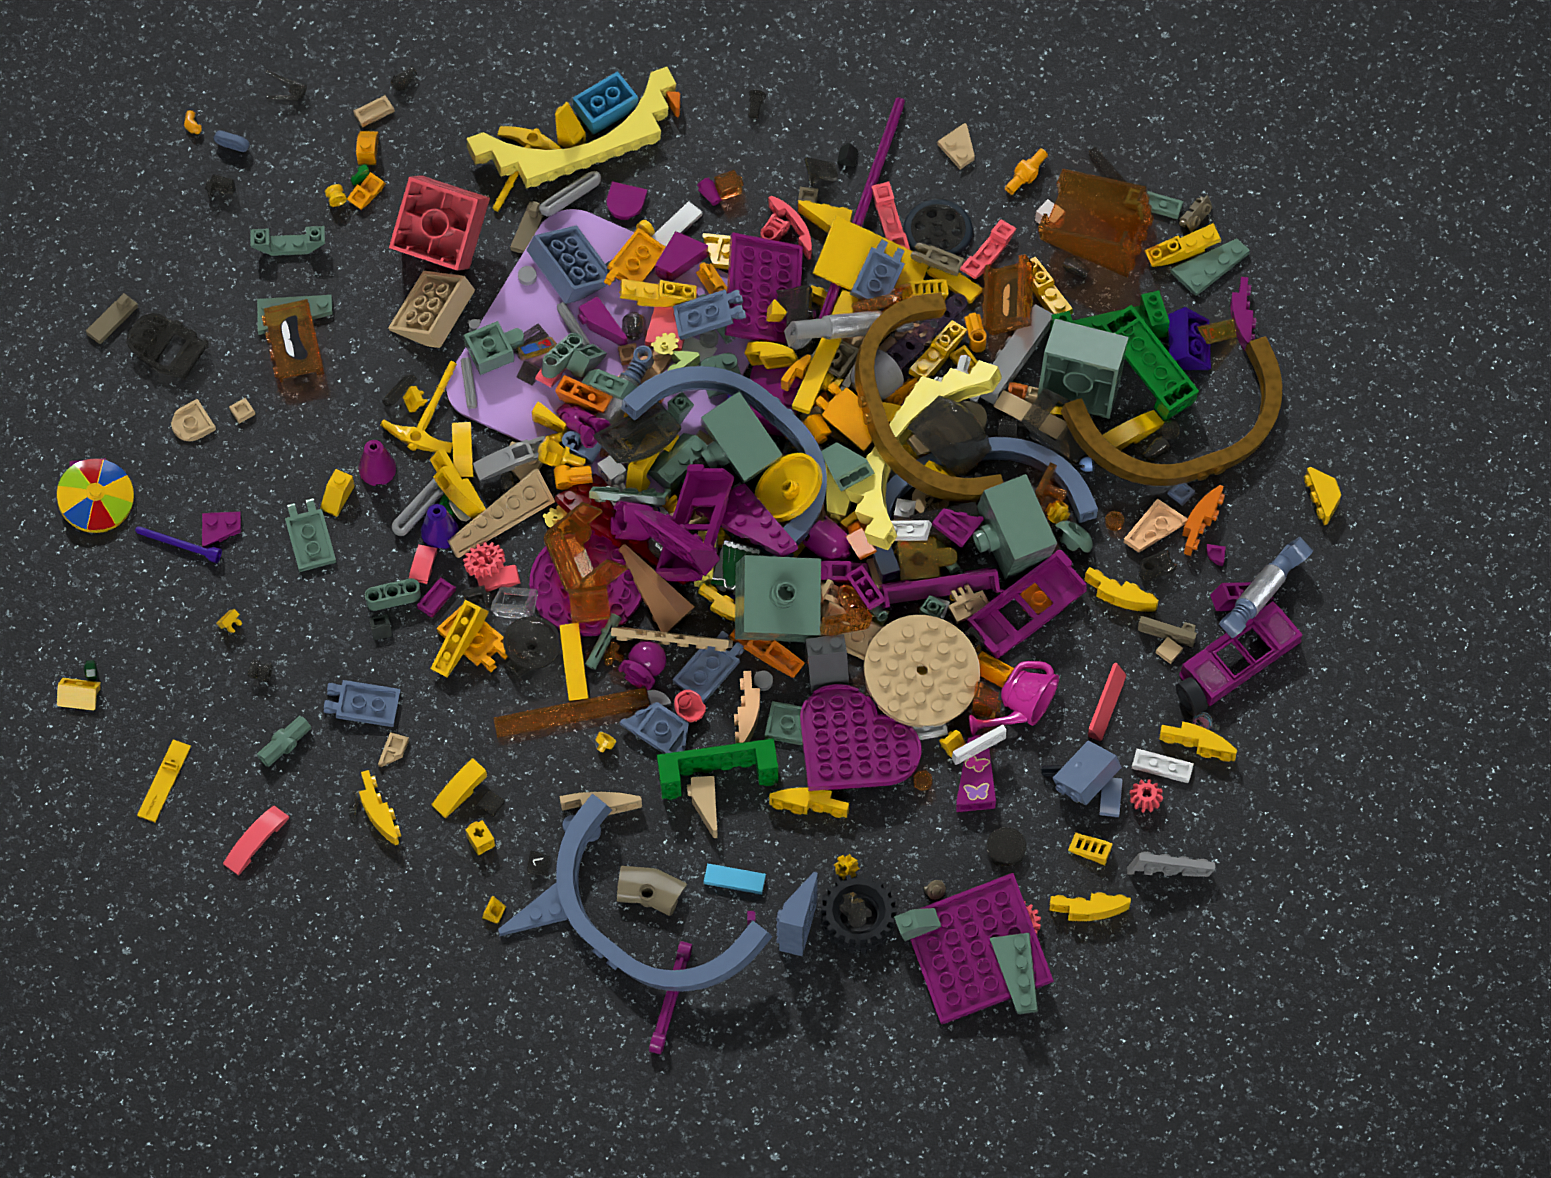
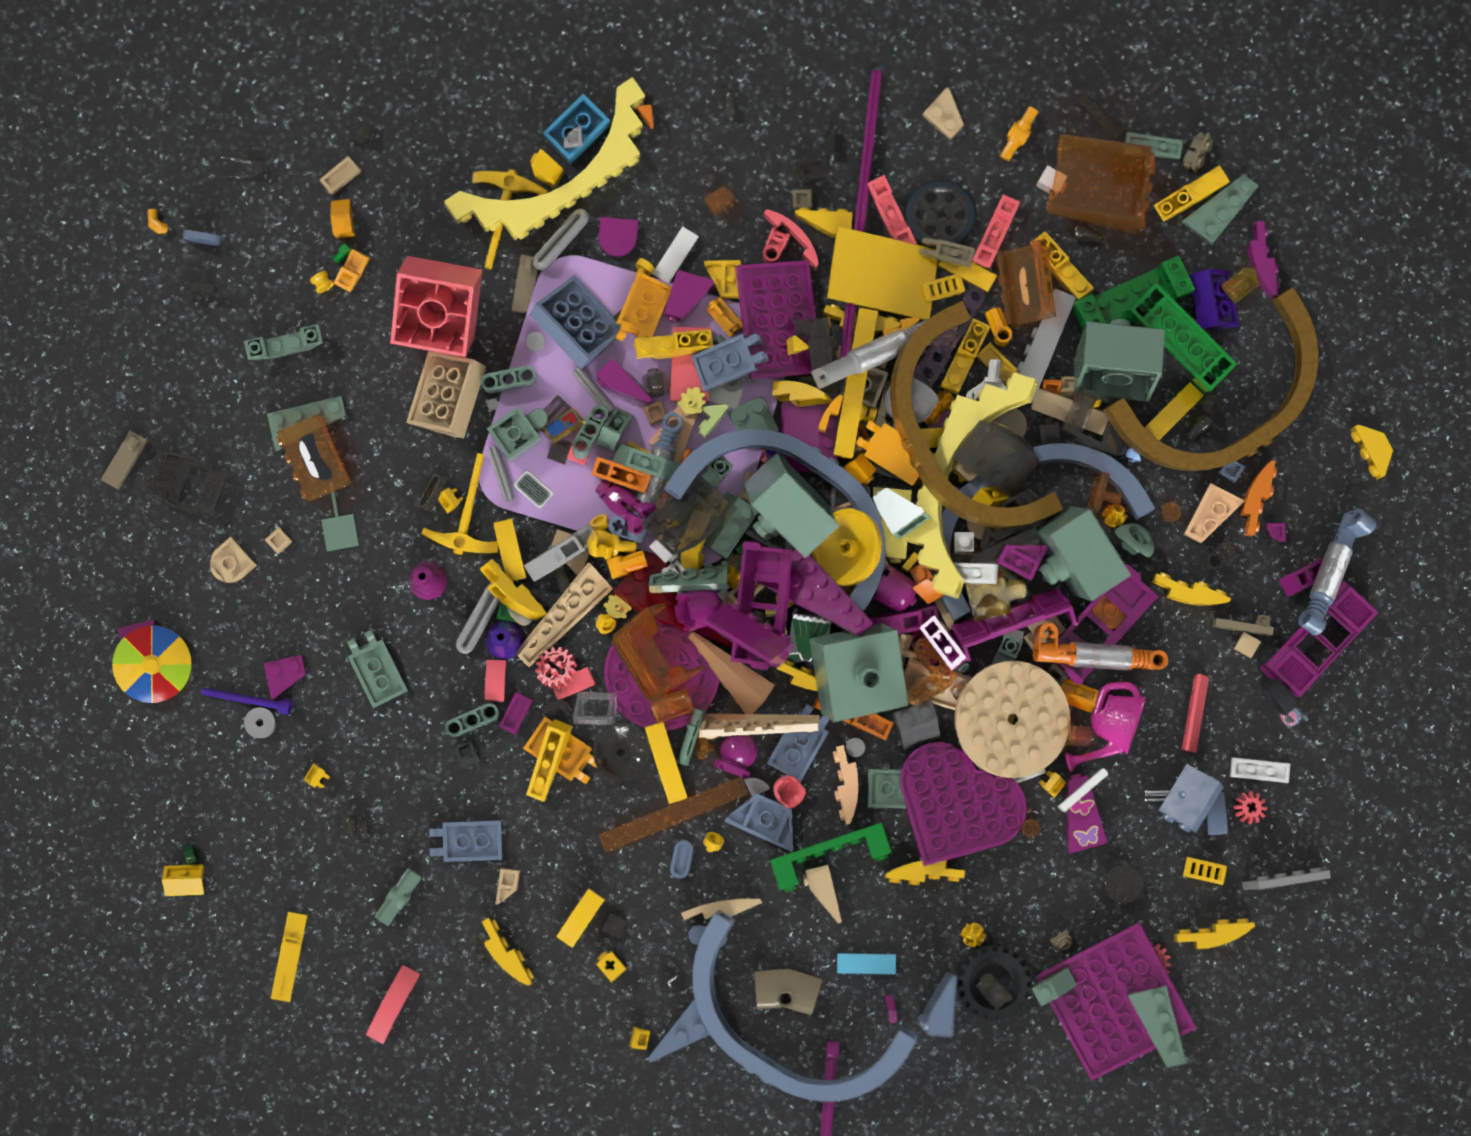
camera: 10 degrees left, 20 degrees up
(186, 558) = (268, 726): none -> light grey piece
(302, 412) = (340, 530): none -> sand green piece
(337, 492) = (393, 618): yellow slope -> none
(496, 402) = (533, 489): none -> sticker
(502, 306) = (518, 381): none -> sand green beam
(539, 529) = (605, 623): none -> yellow tile
(546, 418) = (583, 499): yellow slope -> none
(570, 754) = (681, 859): none -> sand blue tile
(601, 106) = (574, 138): none -> light grey tile
(709, 191) = (701, 211): magenta cone -> none
(878, 273) = (892, 286): sand blue tile -> none
(896, 295) = (914, 317): clear orange beam -> none
(1013, 627) = (1092, 655): none -> piece
(1206, 741) = (1298, 739): yellow slope -> none

